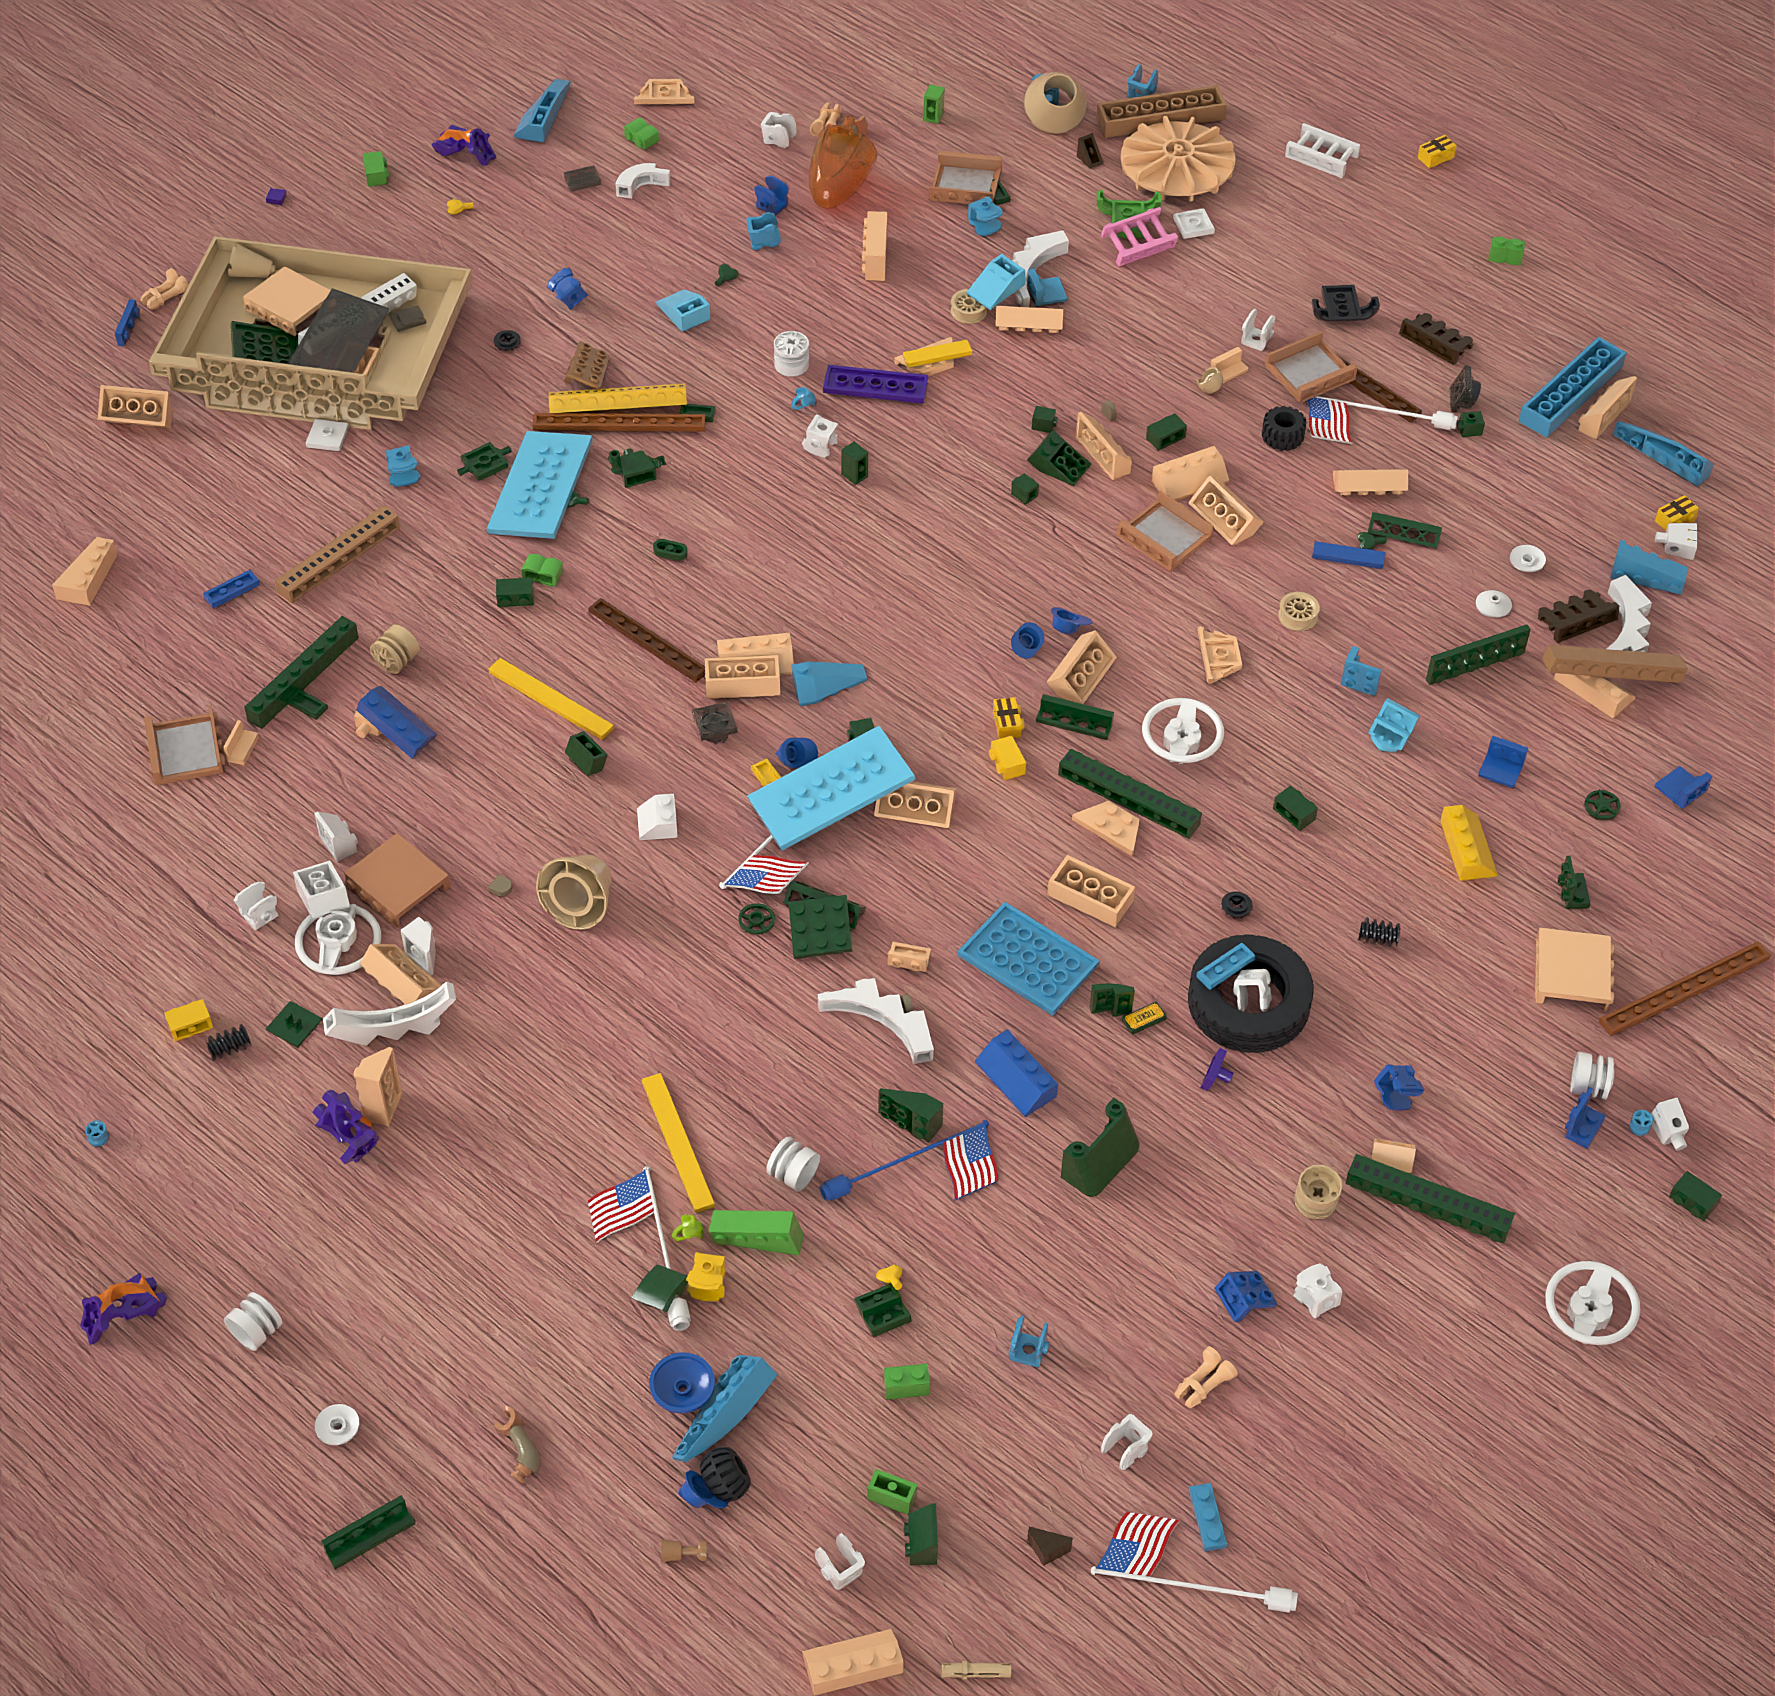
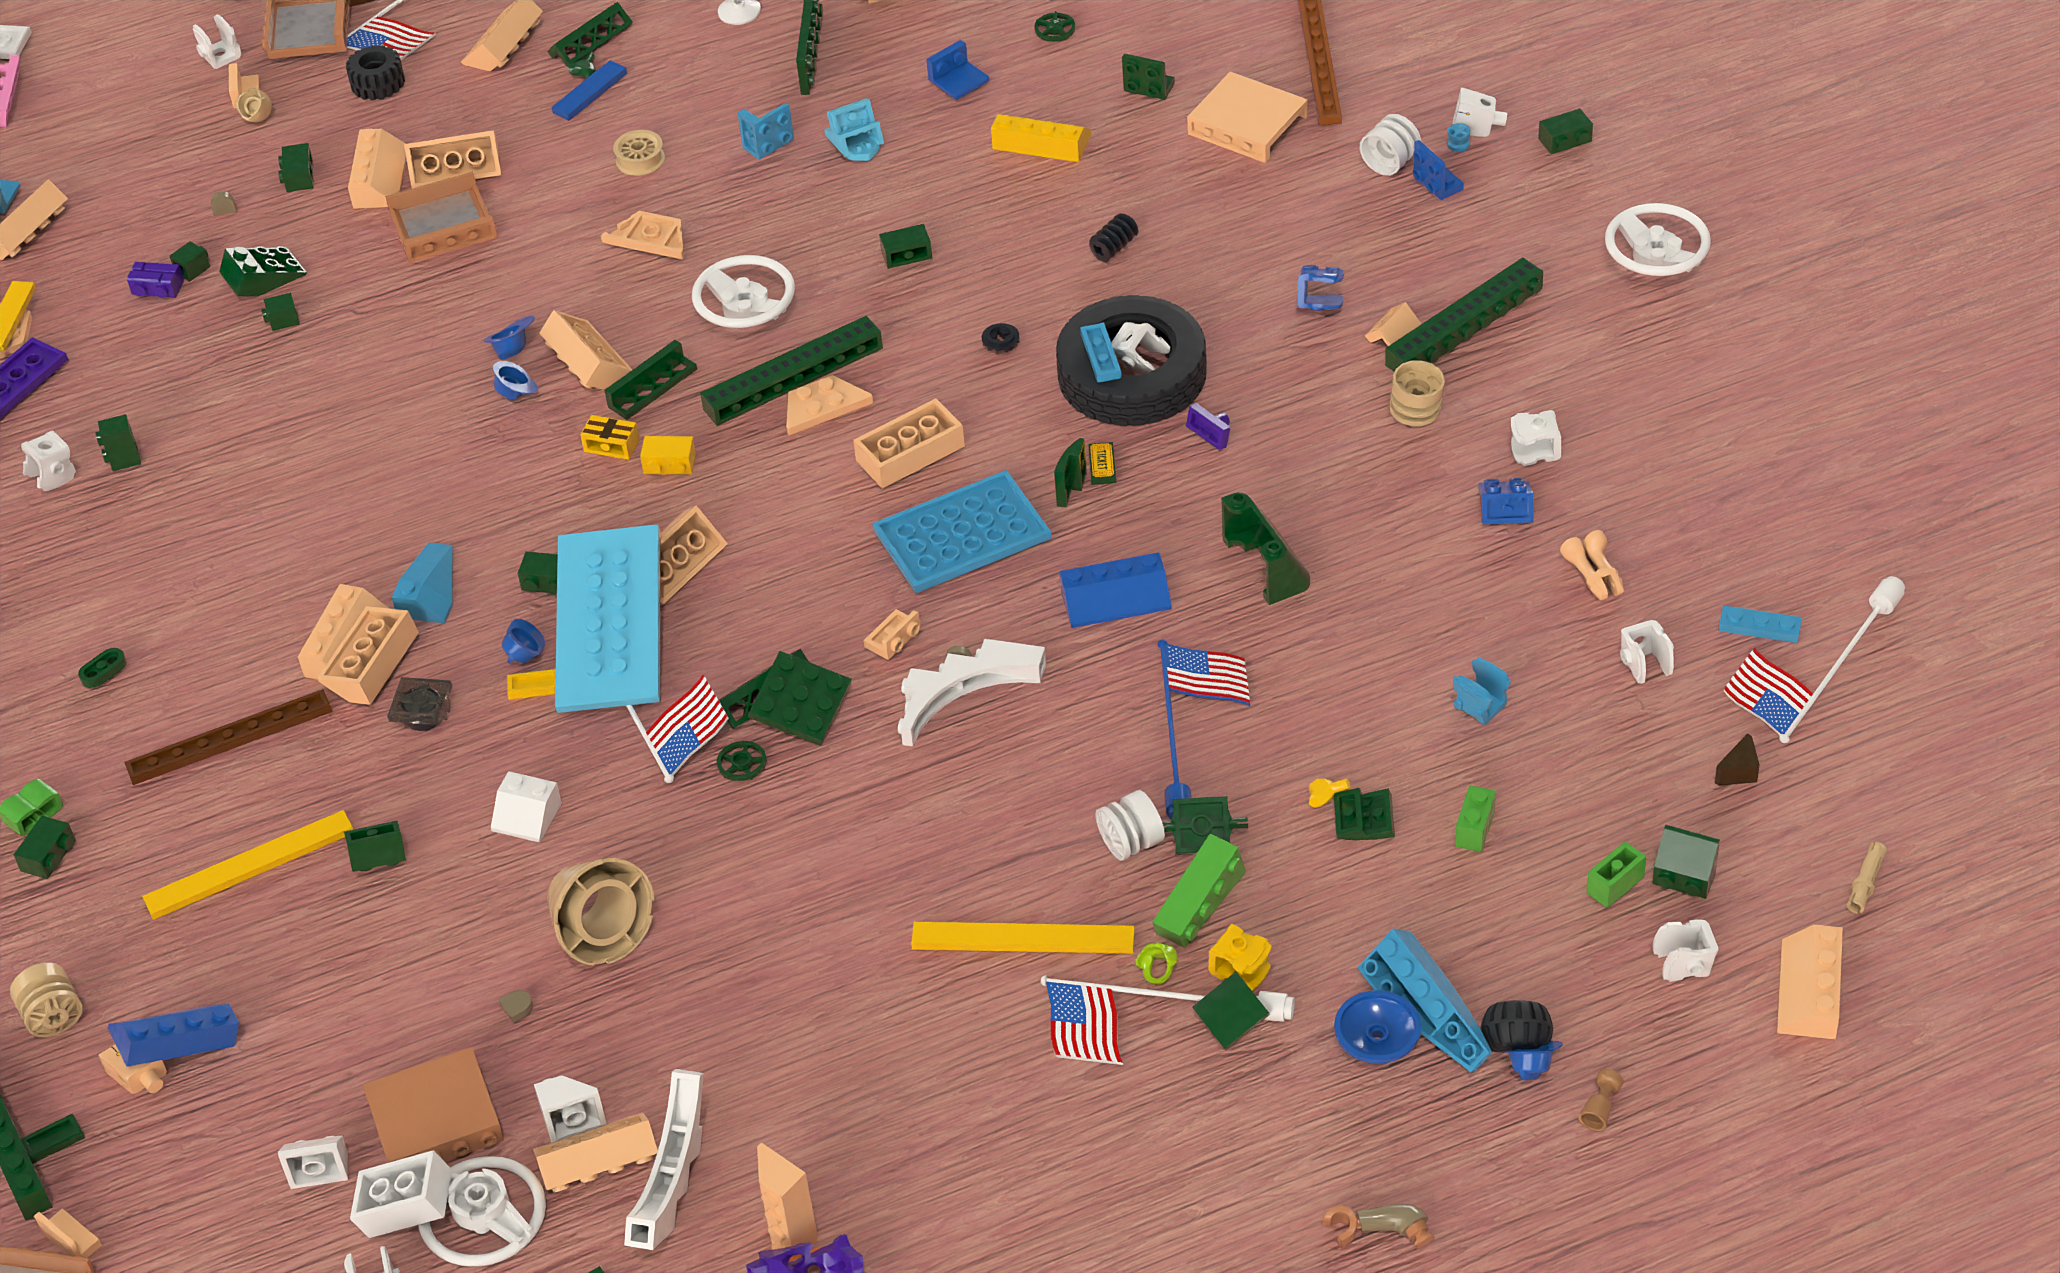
camera: 60 degrees left, 5 degrees down
(816, 1208) = (1197, 818): none -> dark green plate
(912, 1111) = (1121, 693): dark green slope -> none
(1016, 410) = (155, 279): none -> dark purple brick
(1102, 447) = (277, 224): light nougat slope -> none

